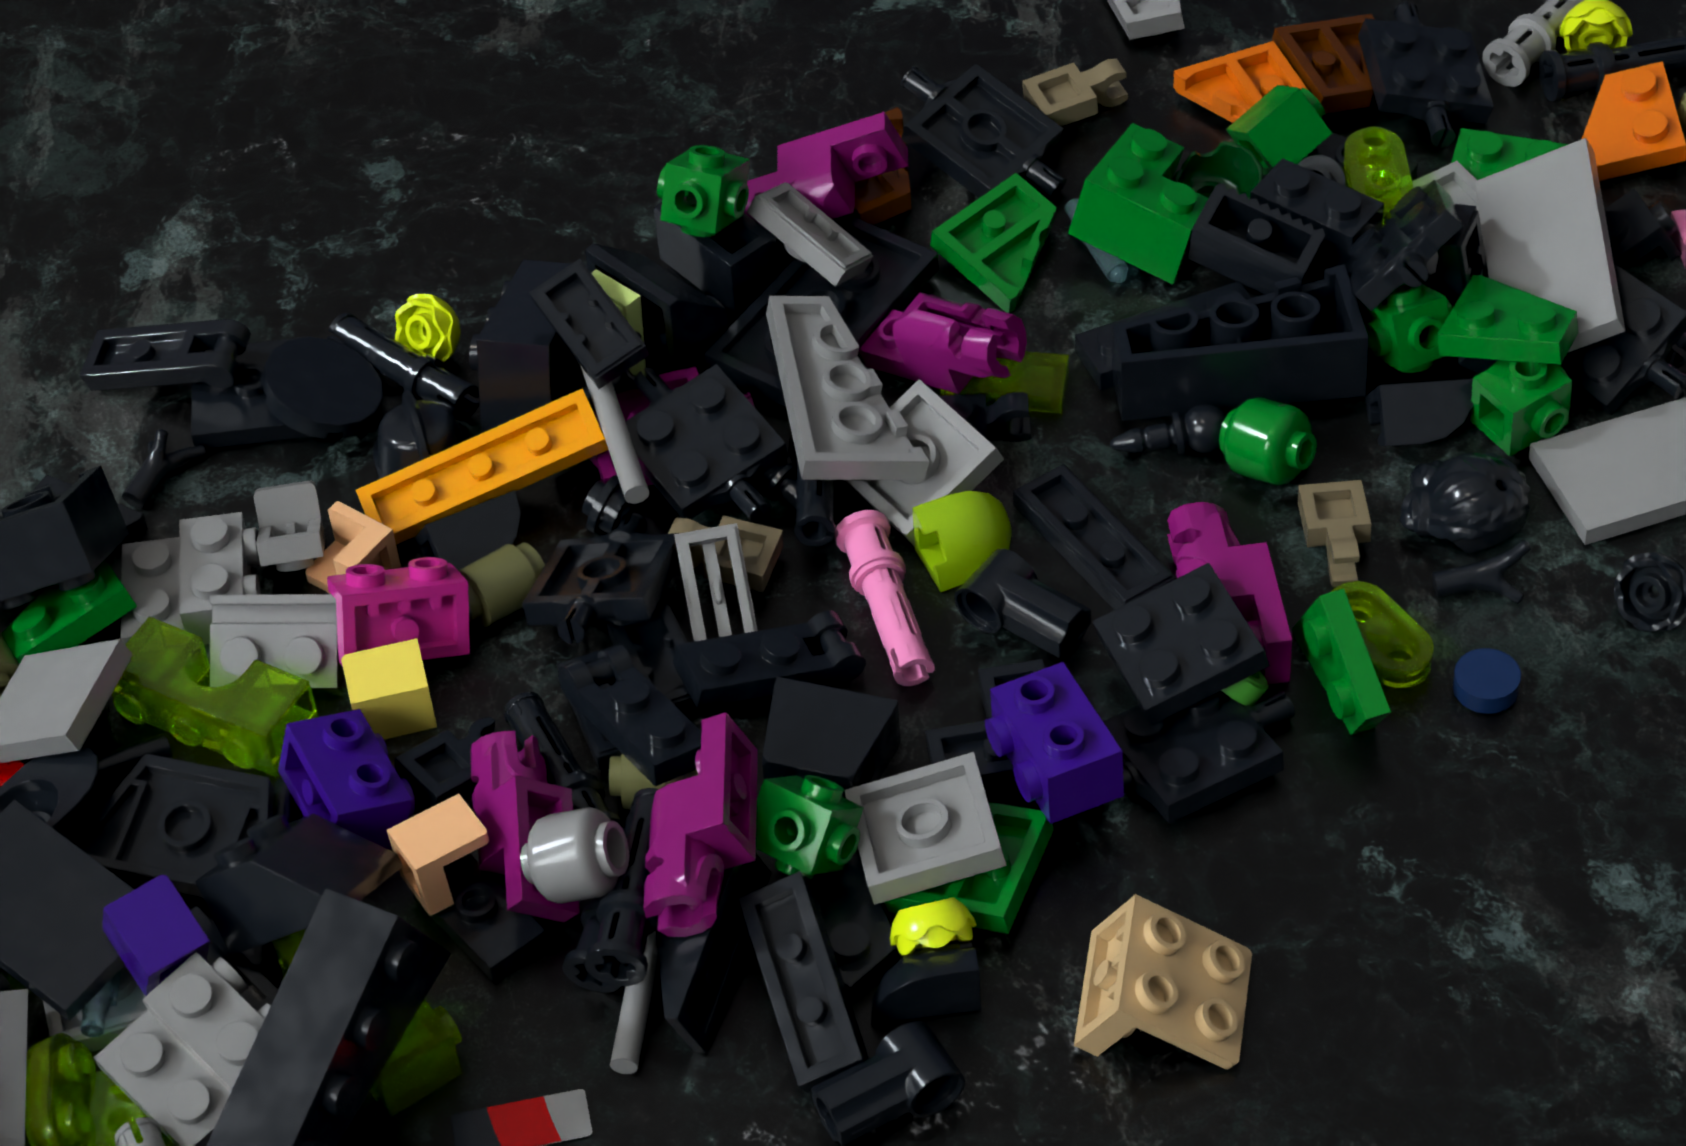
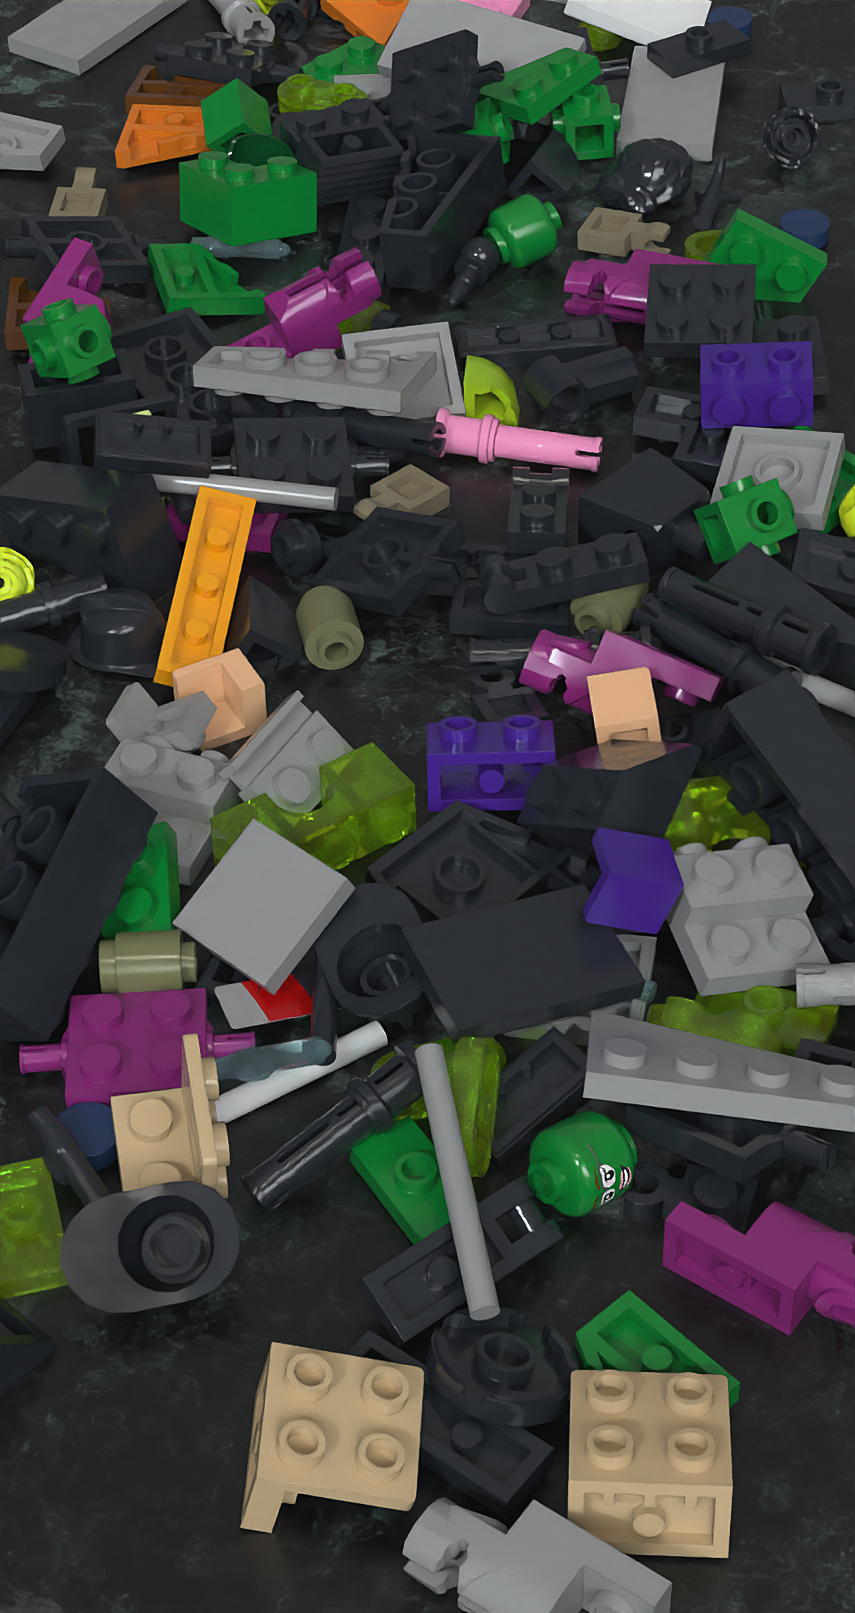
camera: 65 degrees left, 5 degrees down
(390, 688) = (402, 705): light yellow panel -> none
(401, 605) = (337, 667): dark pink bracket -> none
(575, 855) = (715, 621): light grey head -> none
(702, 830) = (742, 545): magenta plate -> none
(707, 538) = (431, 495): light grey tile -> none
(810, 234) = (141, 336): light grey plate -> none

